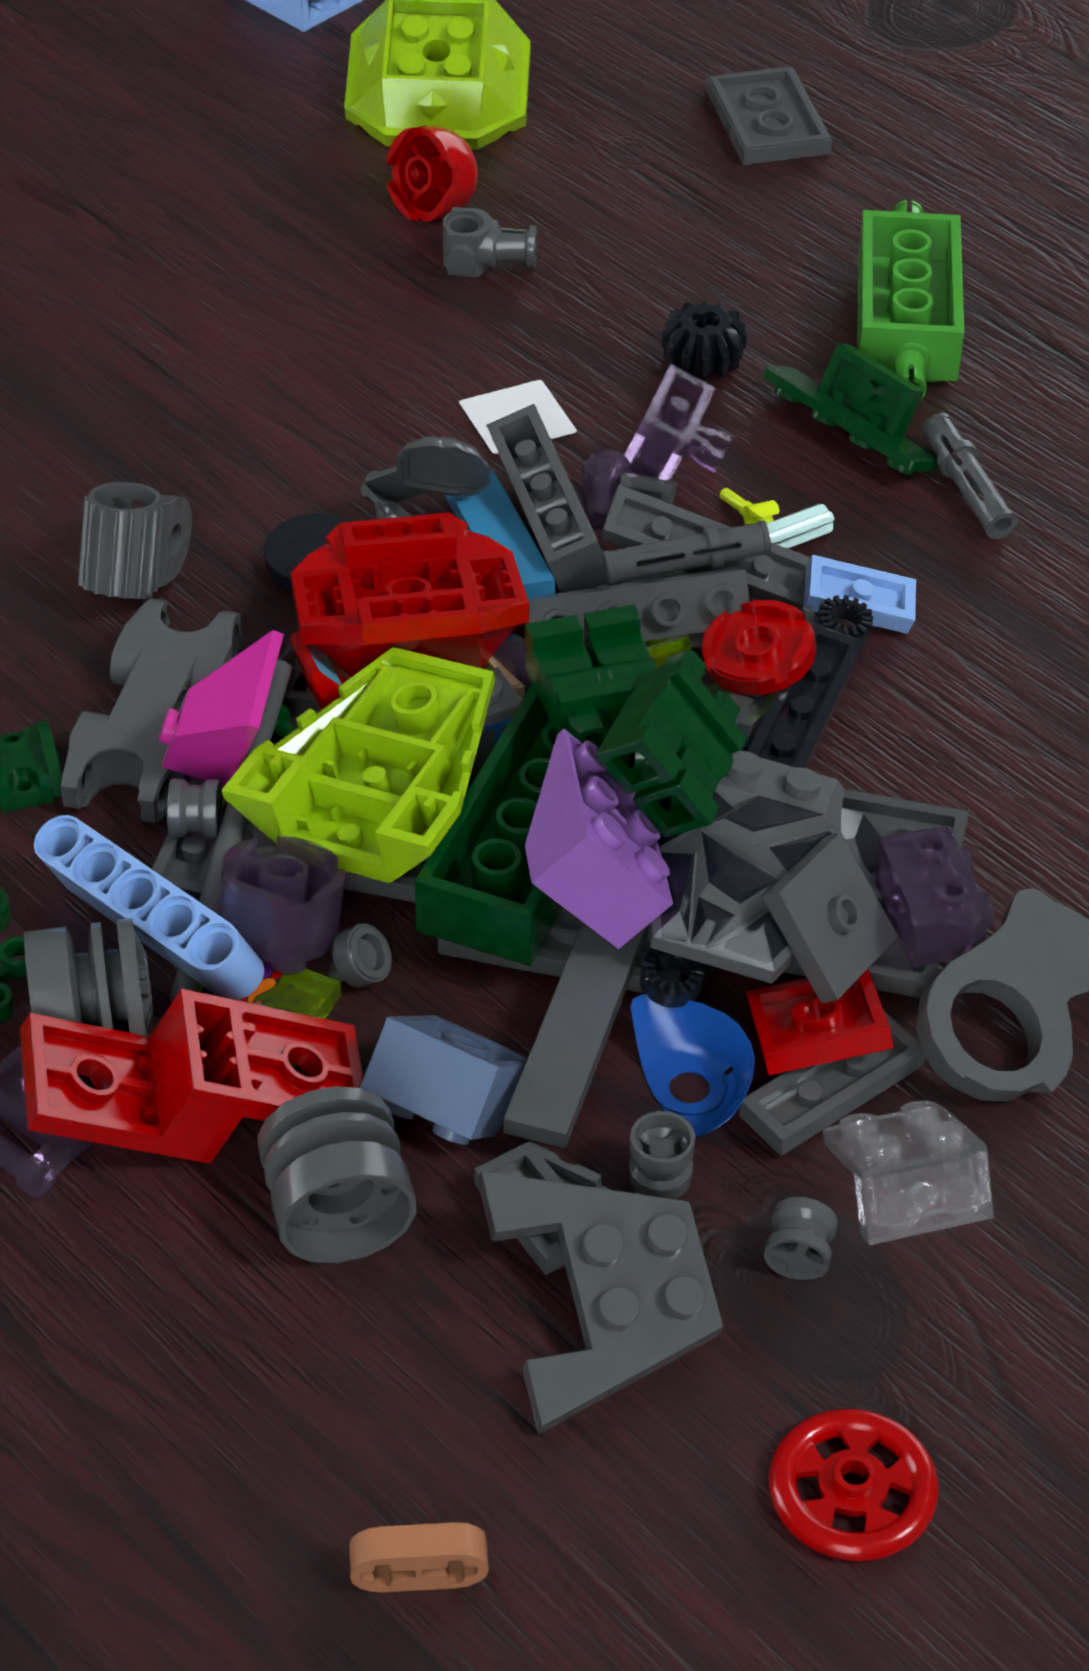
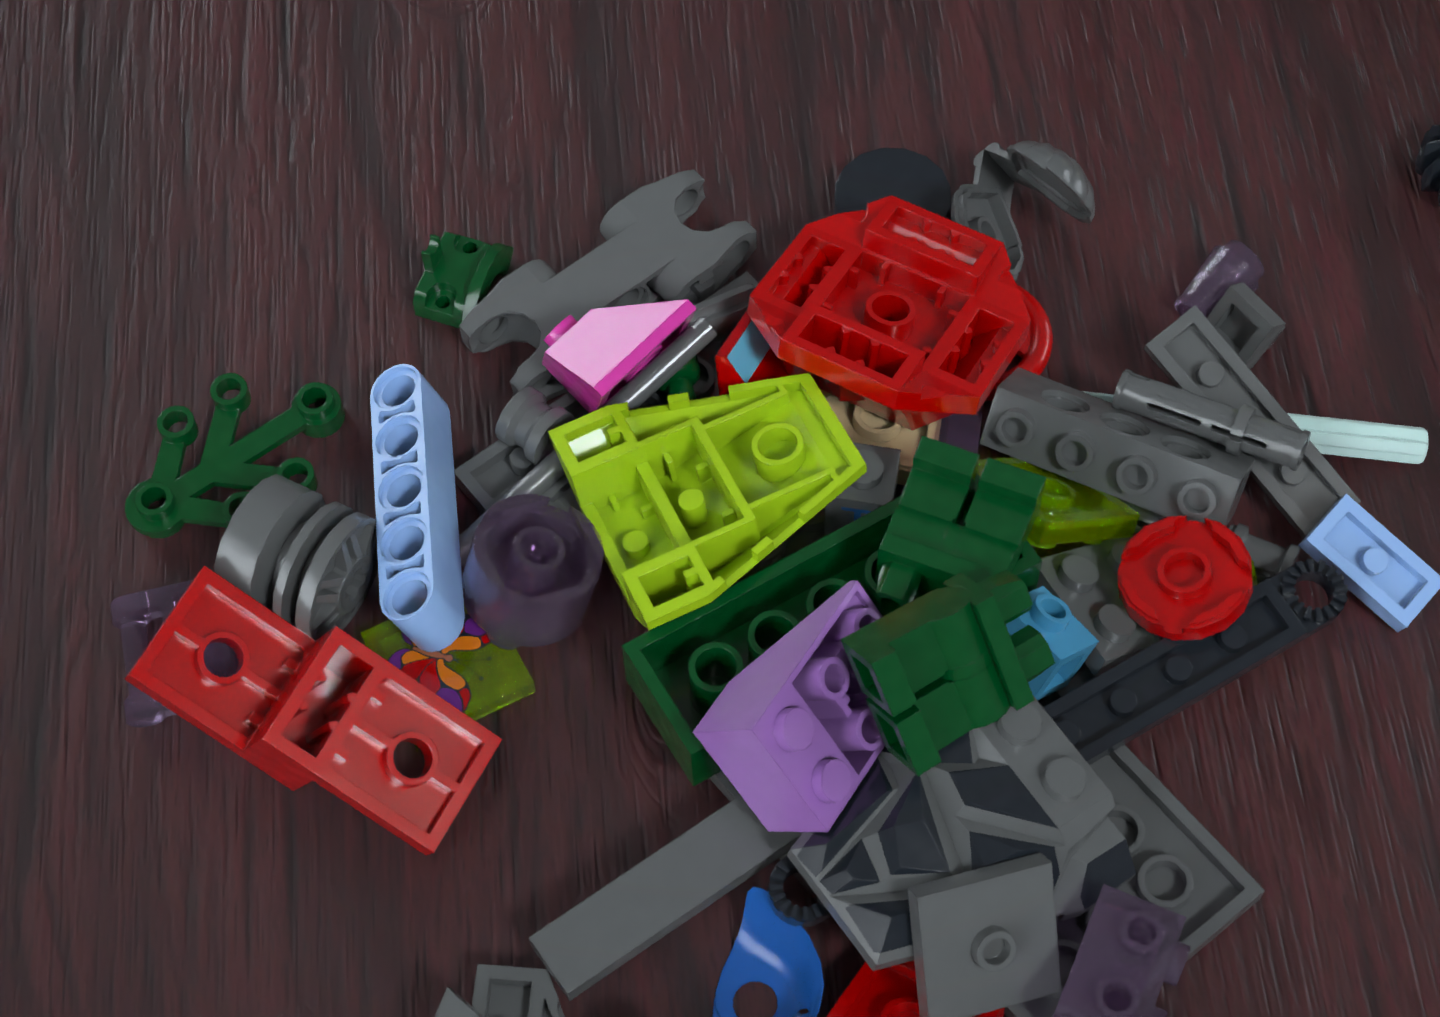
camera: 40 degrees right, 15 degrees up
(127, 548) = (709, 116): dark grey piece -> none
(336, 1175) = (345, 887): dark grey wheel -> none
(360, 956) = (570, 669): dark grey tile -> none
(444, 1076) = (538, 843): sand blue slope -> none
(495, 516) = (1067, 286): dark azure tile -> none
(500, 403) = (1214, 146): white sticker -> none
(549, 500) = (1138, 271): dark grey brick -> none
(674, 428) = (1339, 256): clear purple brick -> none
(751, 512) = (1352, 402): neon yellow hand -> none

